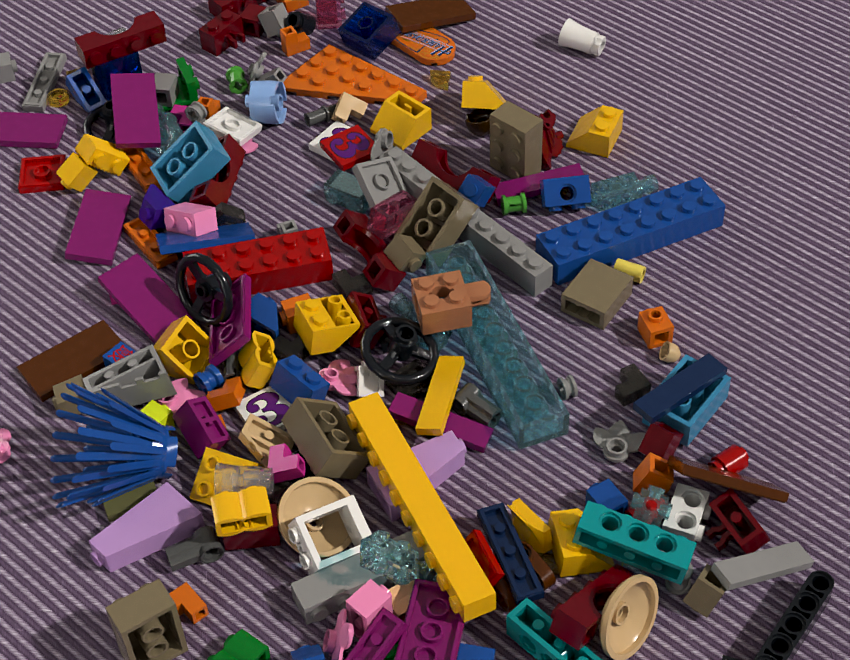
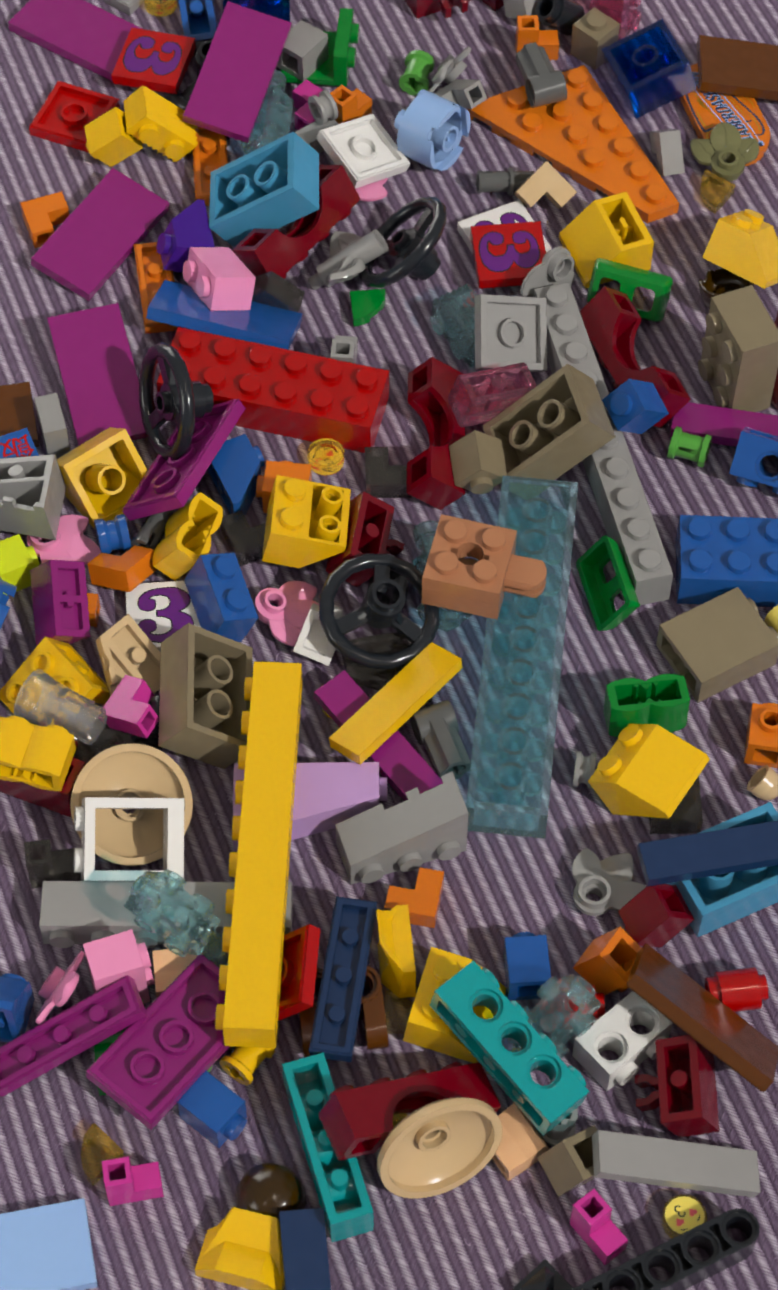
camera: 25 degrees right, 10 degrees up
(56, 231) = (43, 214): none -> orange piece
(73, 124) = (153, 60): none -> red tile
(134, 333) = (52, 425): none -> light grey piece
(258, 182) = (348, 257): none -> light grey plant
(281, 204) = (366, 304): none -> green tile
(282, 574) = (48, 865): none -> clear smoke piece
(291, 163) = (410, 247): none -> black piece
(311, 287) = (326, 456): none -> clear yellow tile
(314, 57) = (541, 80): none -> dark grey piece
(326, 28) = (592, 34): none -> dark tan brick
(405, 67) = (669, 152): none -> light grey piece
(429, 133) = (629, 279): none -> green piece
(435, 56) = (725, 151): none -> olive plate
(476, 630) = (244, 1061): none -> yellow bush
(491, 462) = (406, 834): none -> light grey wedge
(515, 296) = (598, 591): none -> green piece
(522, 489) = (422, 901): none -> orange piece
(581, 338) = (657, 701): none -> green brick
(606, 370) = (647, 772): none -> yellow slope
(669, 601) = (519, 1143): none -> light nougat piece
(740, 624) = (593, 1224): none -> dark pink piece
(781, 595) = (682, 1214): none -> light yellow tile

